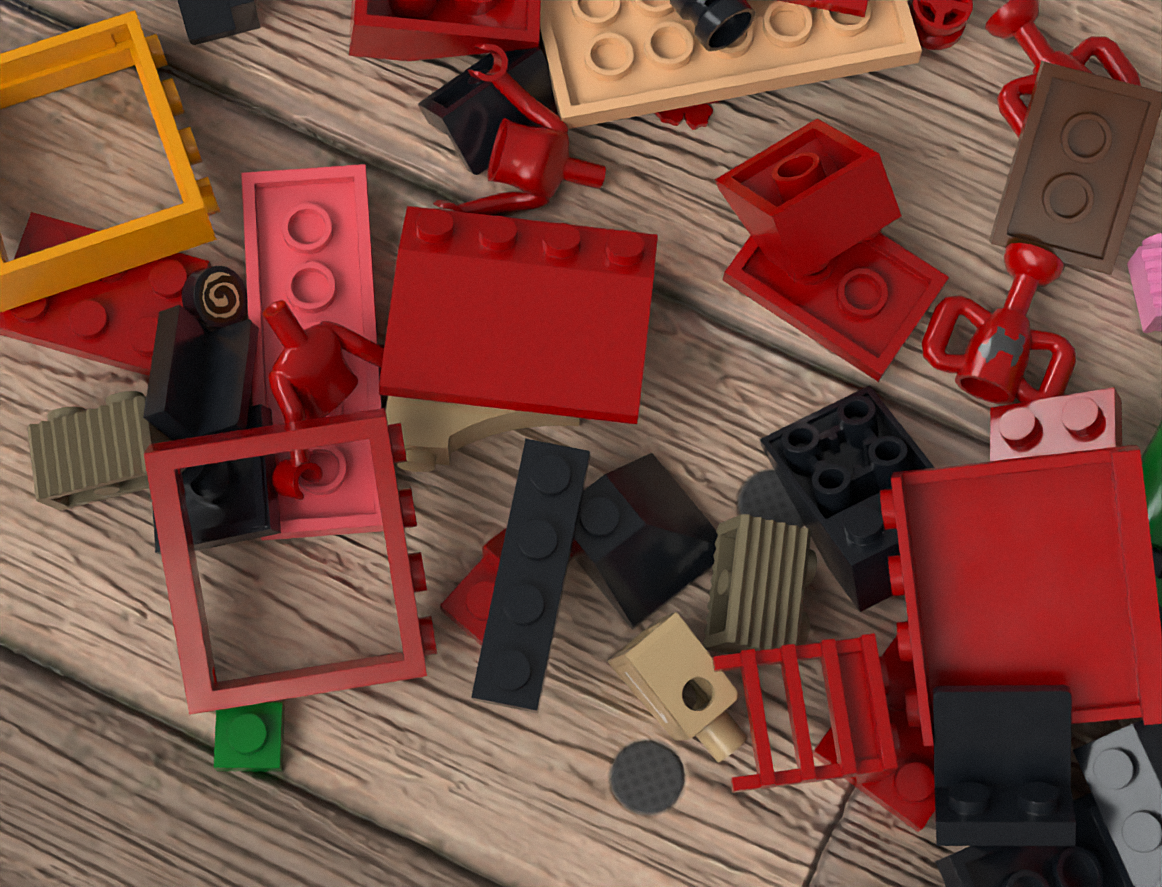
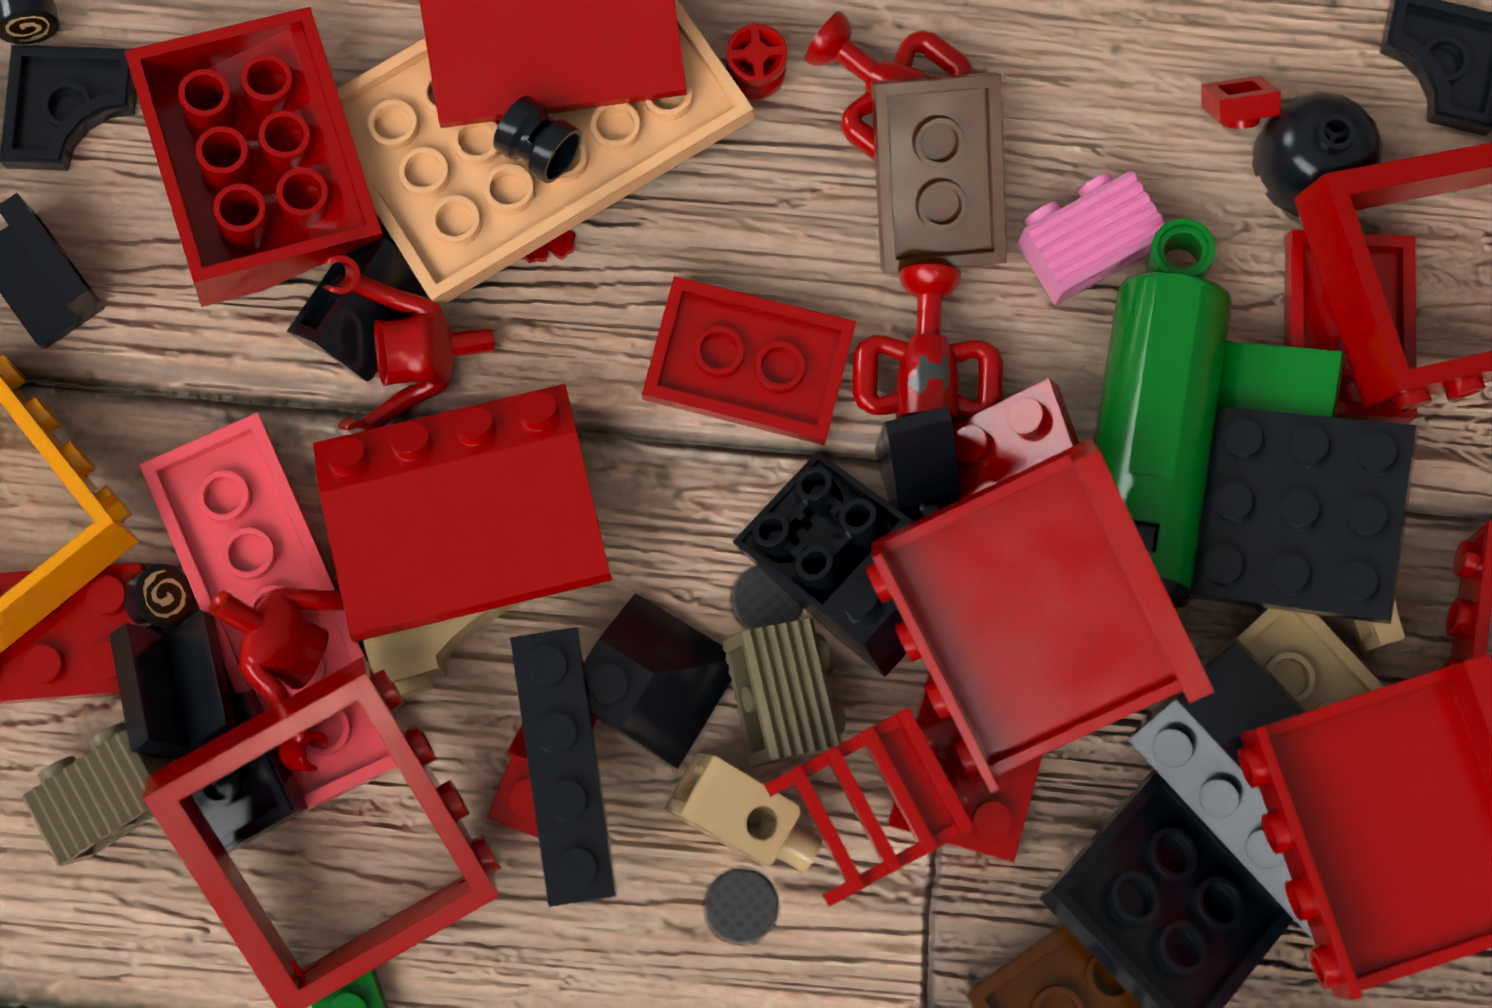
camera: 20 degrees left, 5 degrees up
(811, 197) = (698, 294): red slope -> none
(964, 416) = (919, 462): none -> black slope
(1003, 765) = (1071, 786): black bracket -> none

